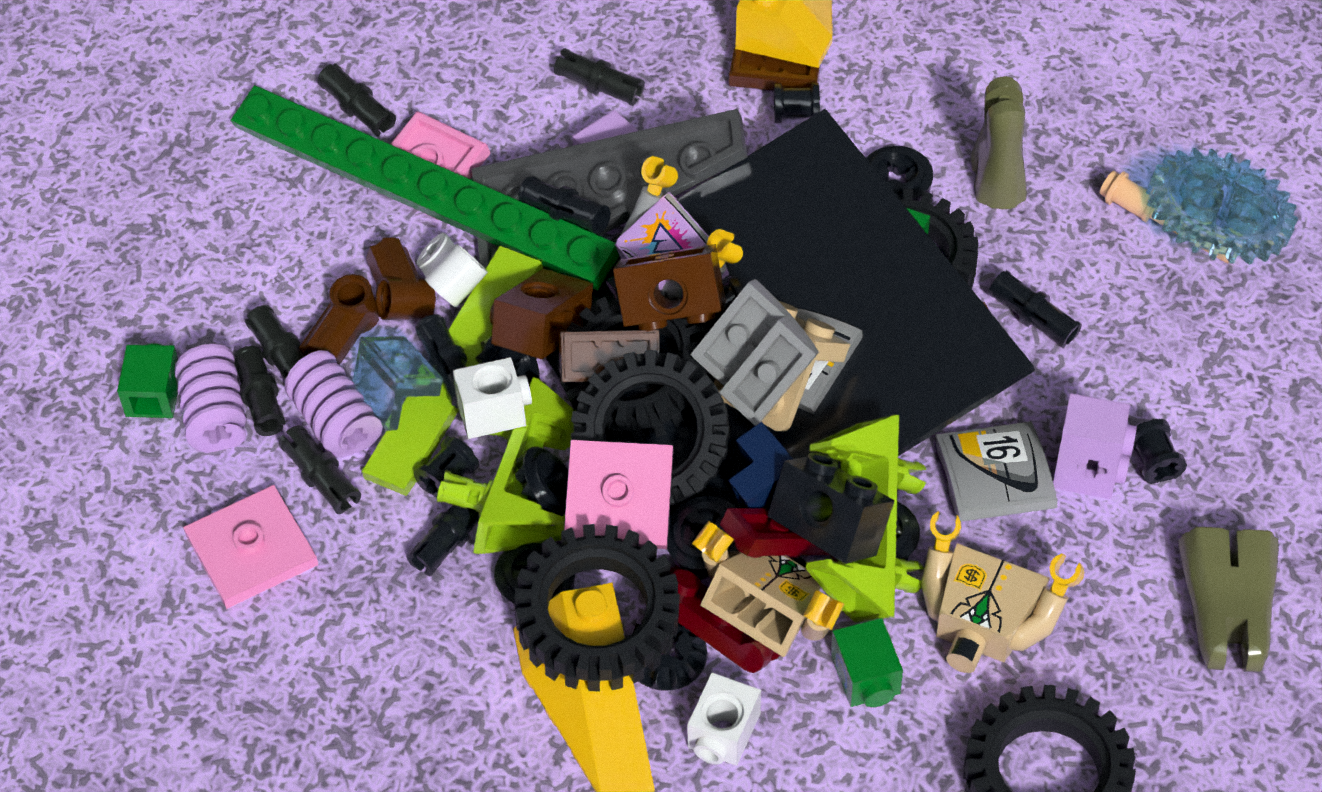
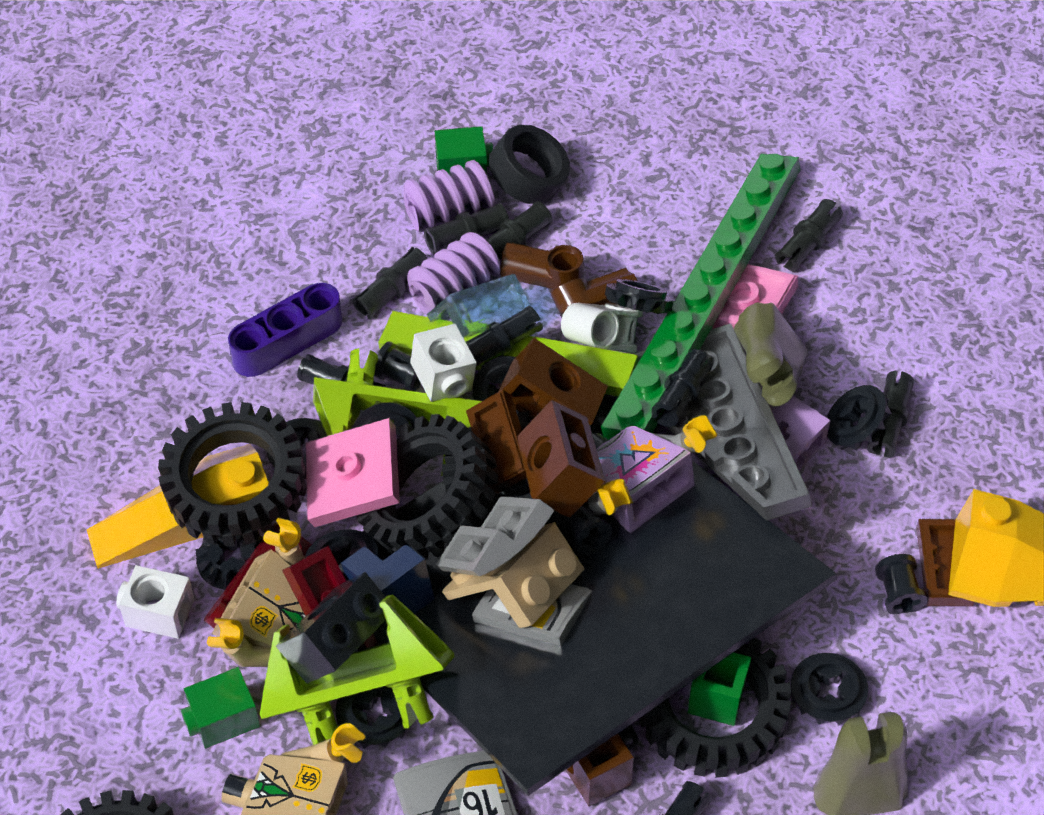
camera: 80 degrees right, 0 degrees up
(193, 312) = (517, 180): none -> black tyre
(250, 546) = (314, 252): bright pink plate -> none
(363, 555) = (285, 329): none -> dark purple beam
(429, 227) = (639, 296): none -> black gear
(518, 135) = (772, 351): none -> olive piece
(597, 77) = (849, 410): none -> black gear

